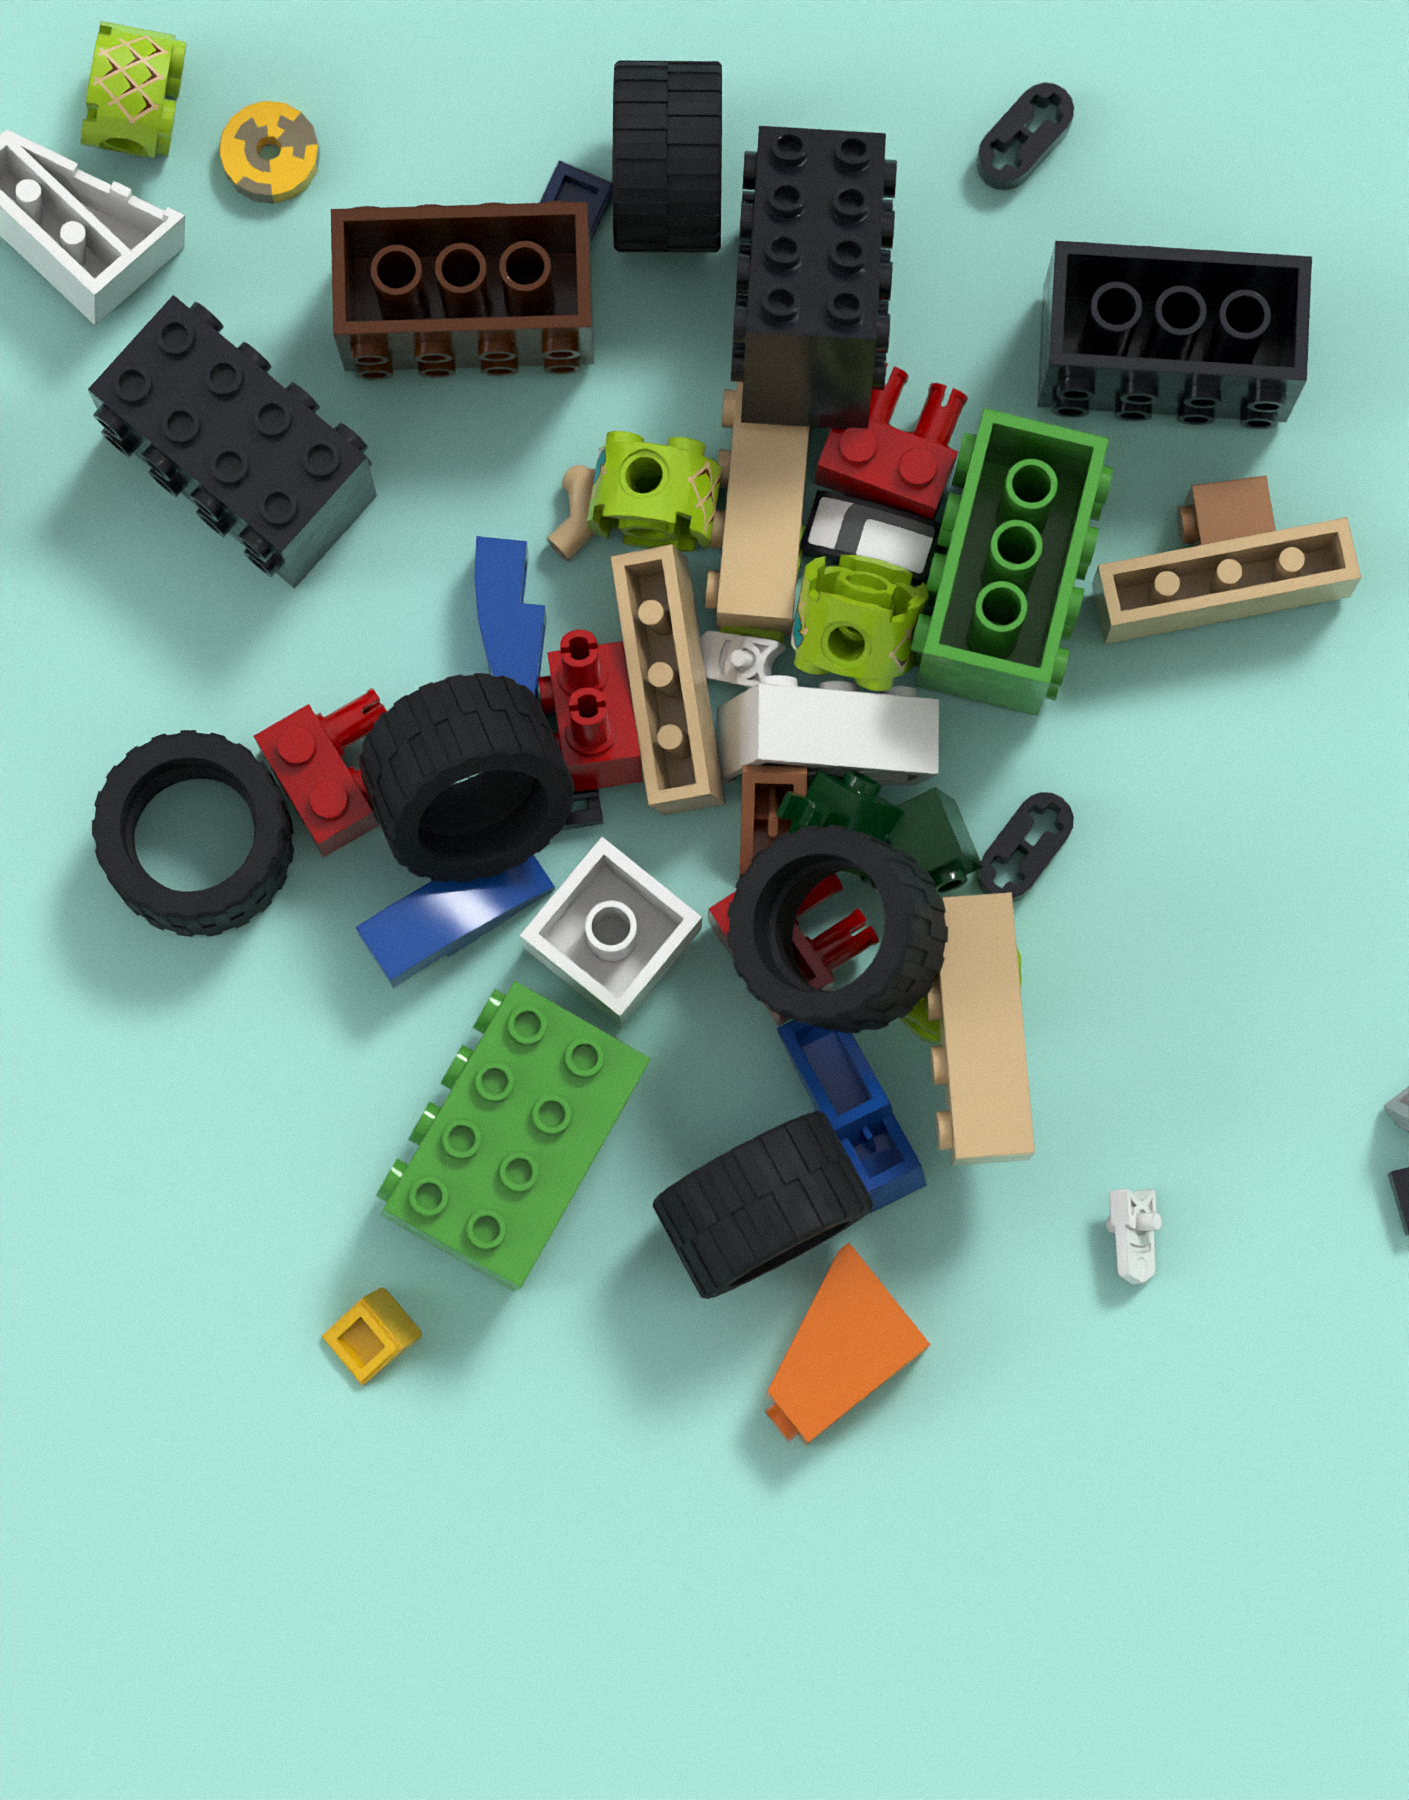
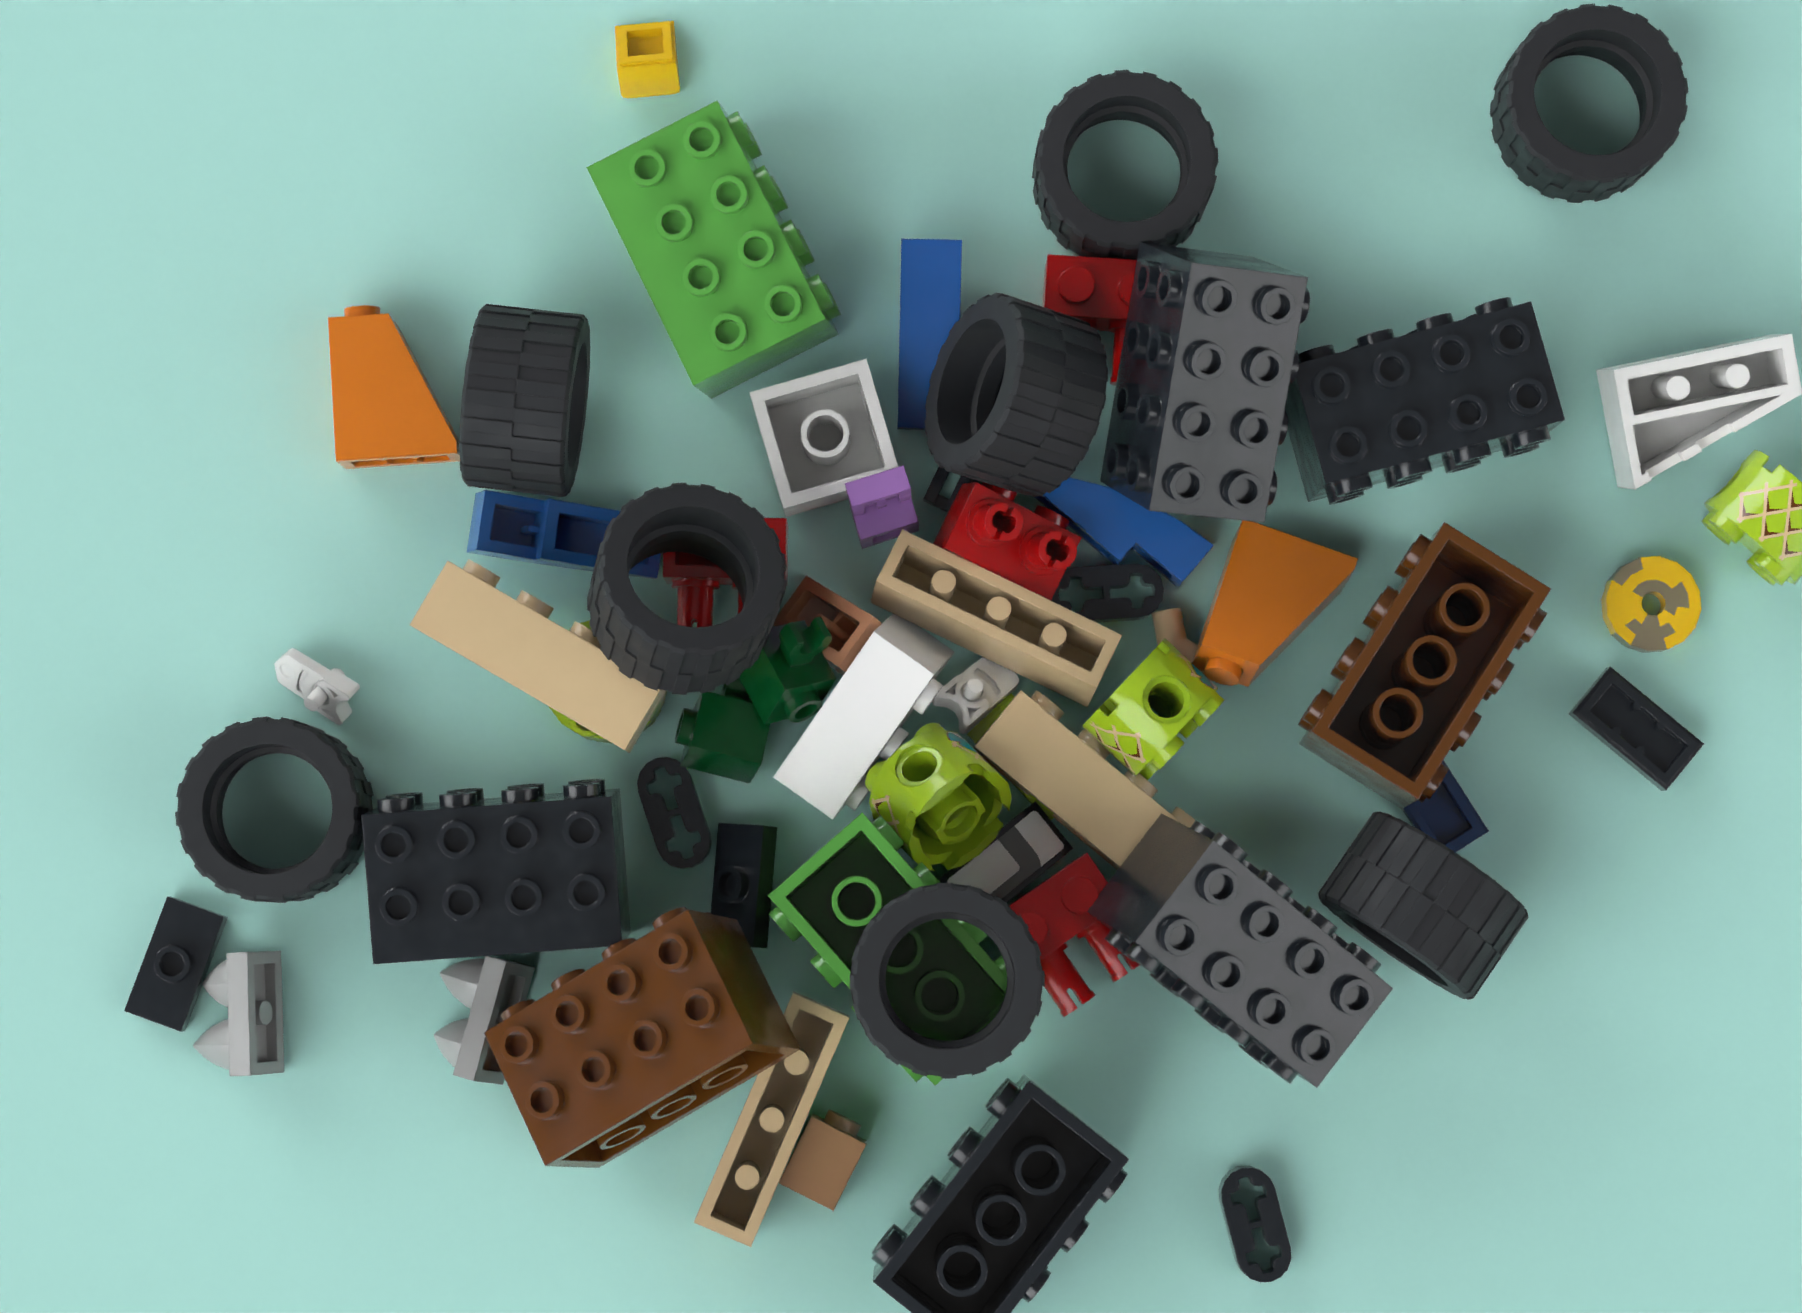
camera: 125 degrees right, 5 degrees up
(343, 623) = (1204, 382): none -> black brick
(387, 94) = (1636, 729): none -> black plate
(495, 465) = (1266, 600): none -> orange slope
(584, 591) = (1107, 578): none -> black beam
(640, 837) = (882, 506): none -> medium lavender slope
(1032, 399) = (1020, 1002): none -> black tyre
(1046, 744) = (745, 878): none -> black plate
(1187, 947) = (496, 872): none -> black brick
(1242, 722) = (640, 1038): none -> reddish brown brick
(1289, 889) = (487, 989): none -> light grey tile
(1333, 1136) = (202, 804): none -> black tyre

